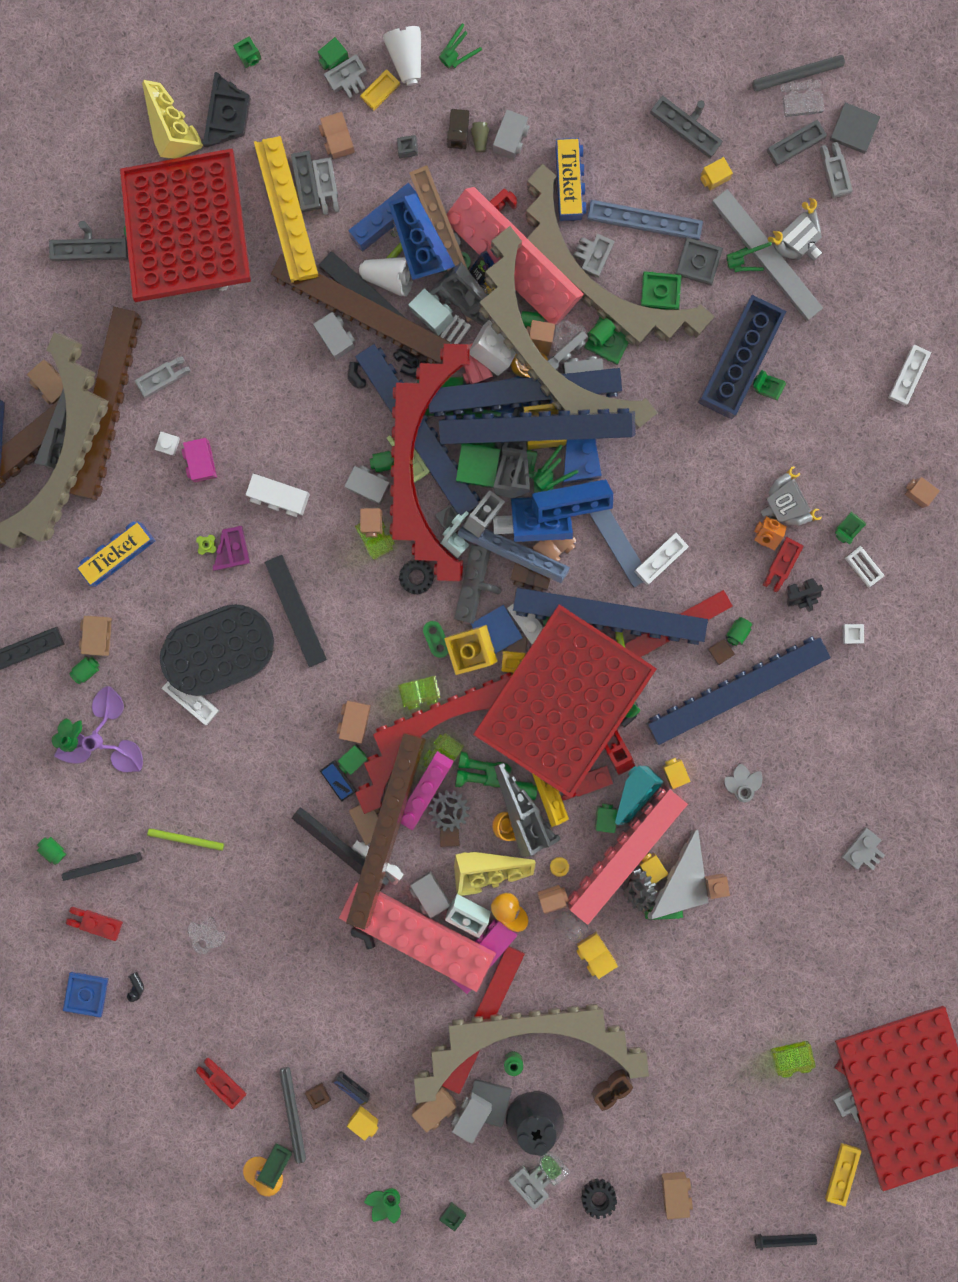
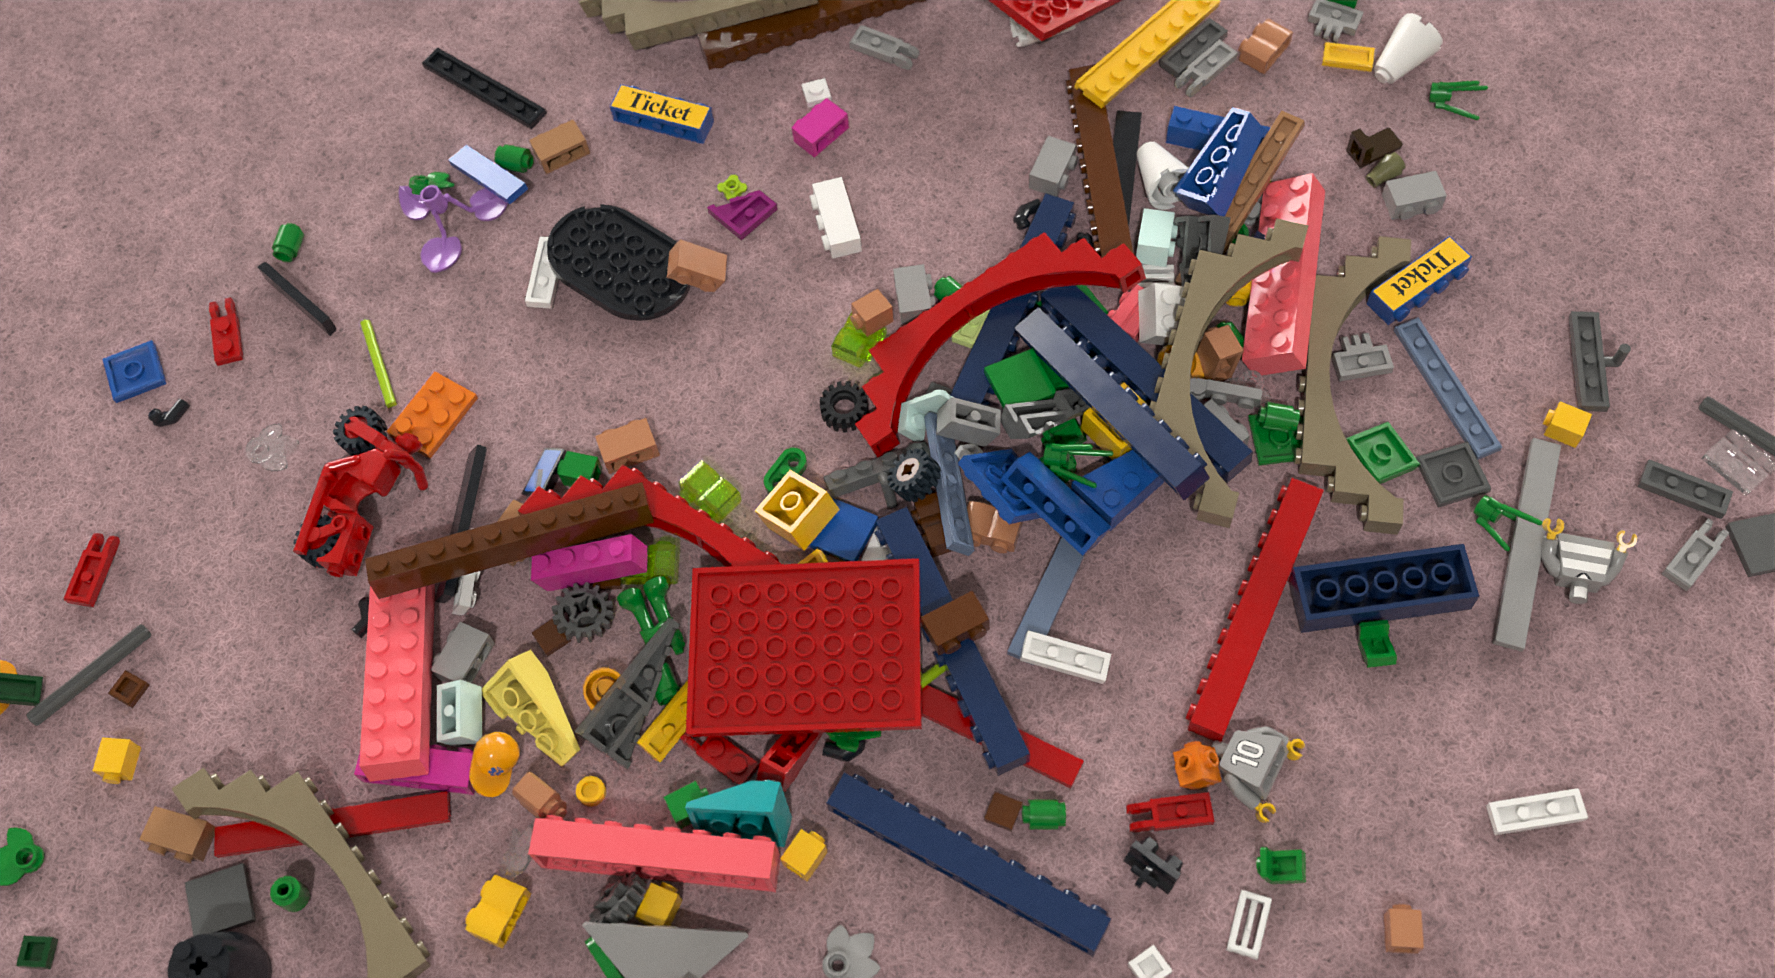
camera: 60 degrees right, 25 degrees down
(87, 694) = (488, 174): none -> tile
(248, 826) = (433, 413): none -> orange plate
(257, 605) = (696, 266): none -> nougat brick
(273, 904) = (342, 535): none -> red piece
(295, 610) = (717, 314): black tile -> none
(351, 1088) = (159, 720): black slope -> none
(407, 146) = (1313, 113): dark grey tile -> none
(471, 1117) = (187, 884): light grey brick -> none
(502, 197) = (1337, 229): red bracket -> none
(503, 564) = (914, 475): none -> black wheel
(612, 609) = (956, 622): none -> reddish brown brick
(703, 433) = (1254, 613): none -> red brick

